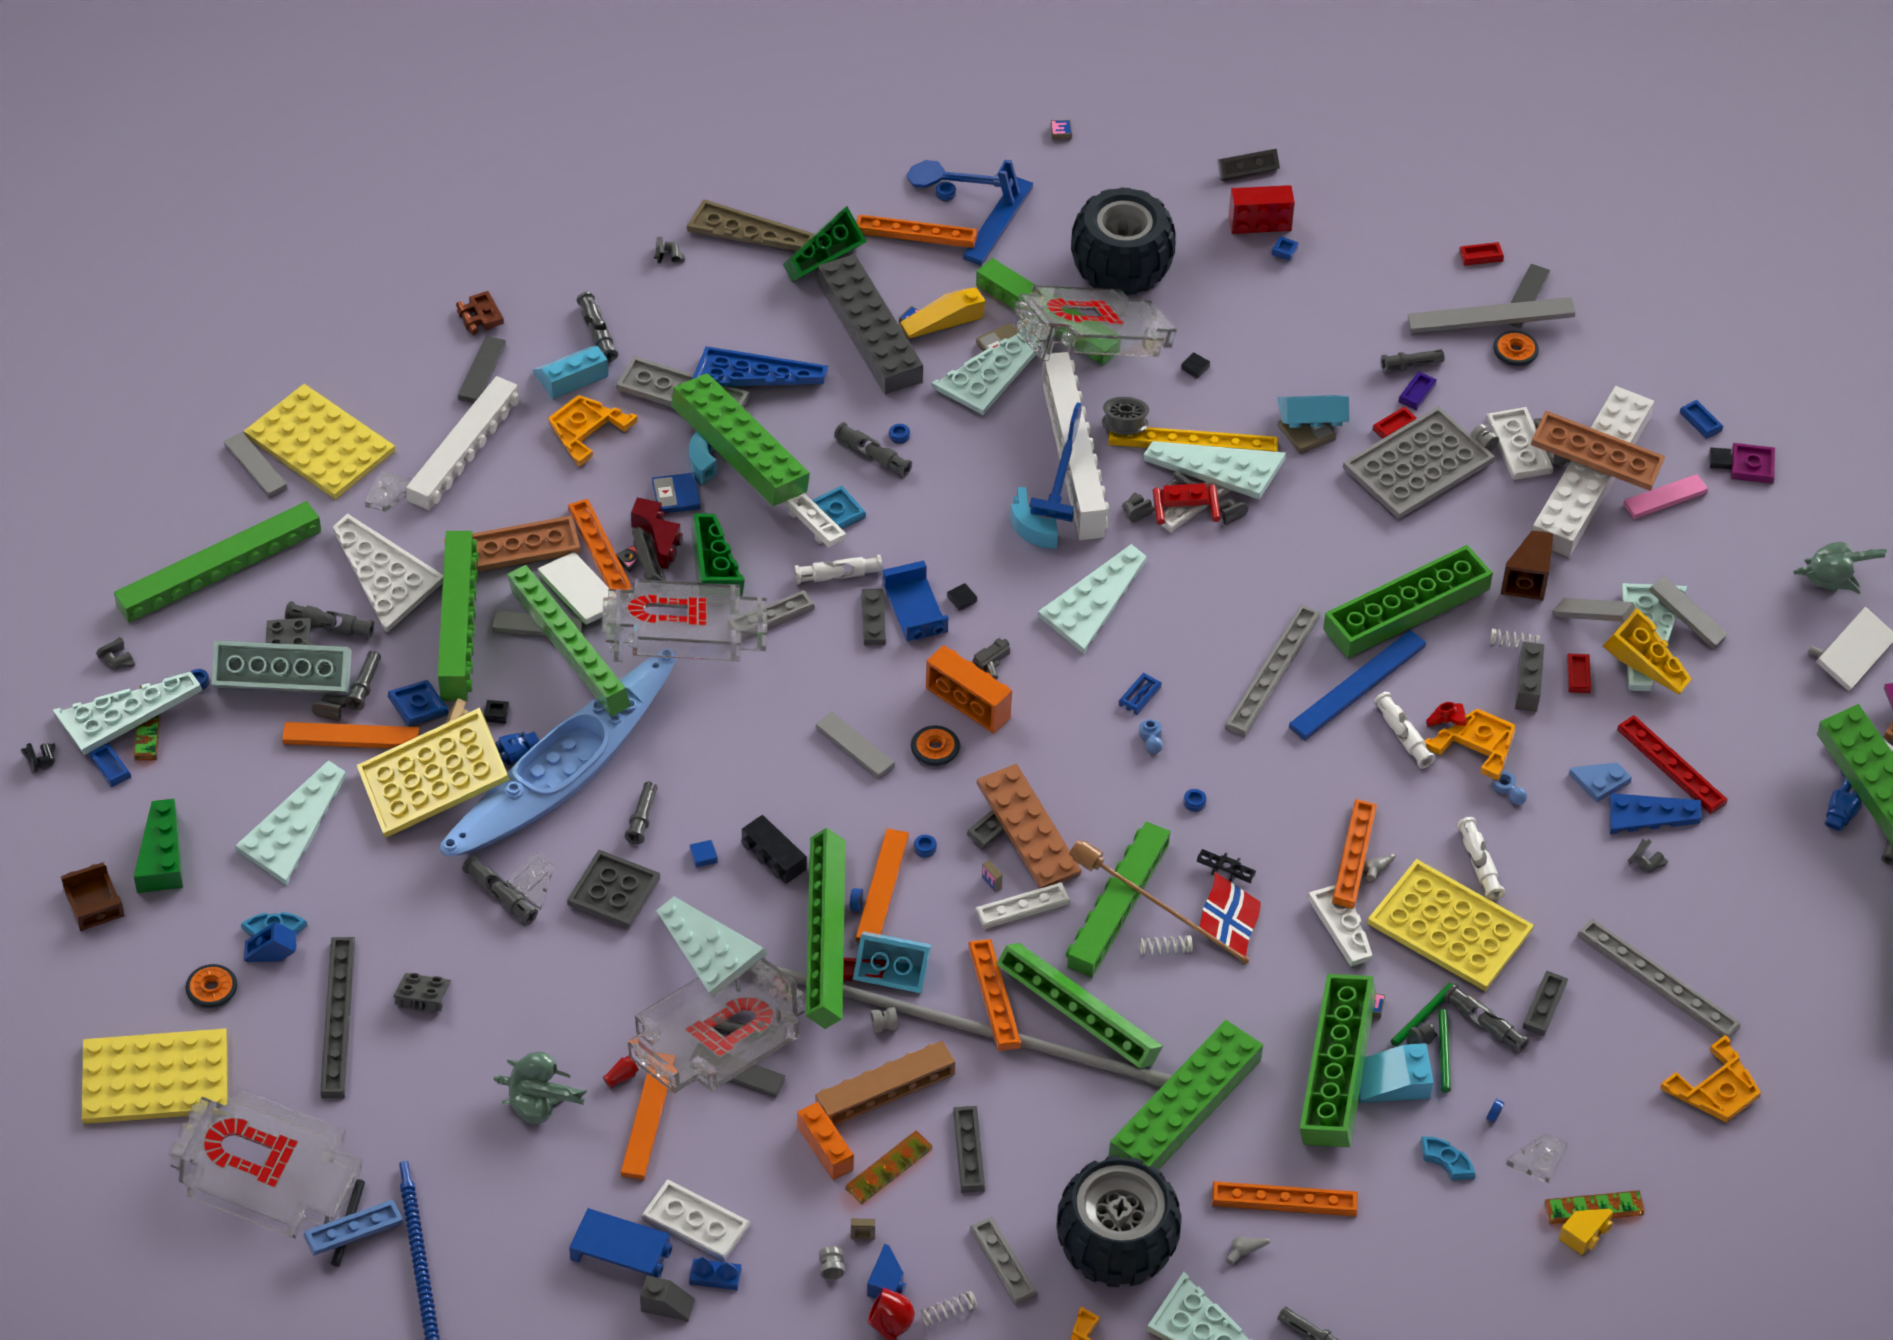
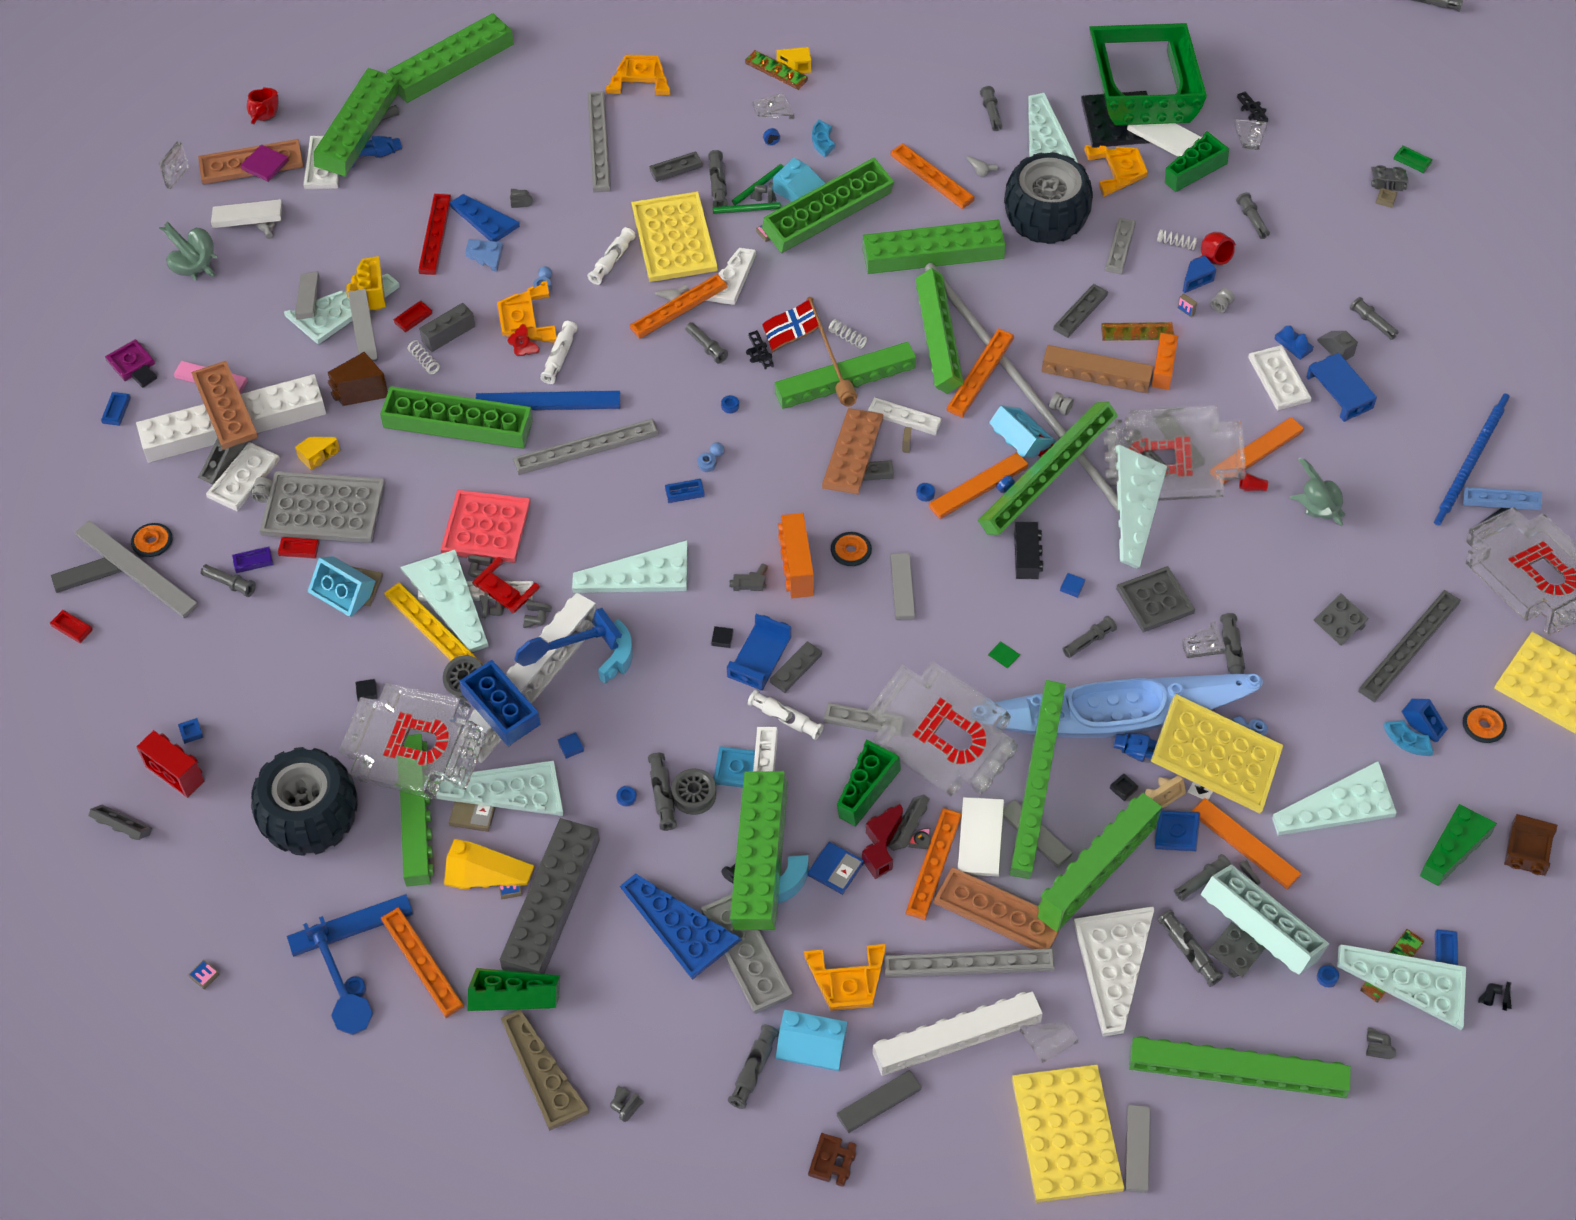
camera: 135 degrees left, 5 degrees up
(438, 828) = (1252, 724): none -> medium blue plate
(499, 493) = (969, 963): none -> light grey tile
(706, 752) = (1004, 654): none -> green sticker
(848, 466) = (692, 780): none -> dark grey wheel
(986, 436) = (570, 745): none -> blue tile
(1053, 375) = (500, 702): none -> blue brick
(1266, 541) = (486, 525): none -> coral plate
(1275, 837) = (711, 346): none -> dark grey pin
(1488, 497) = (316, 450): none -> yellow slope

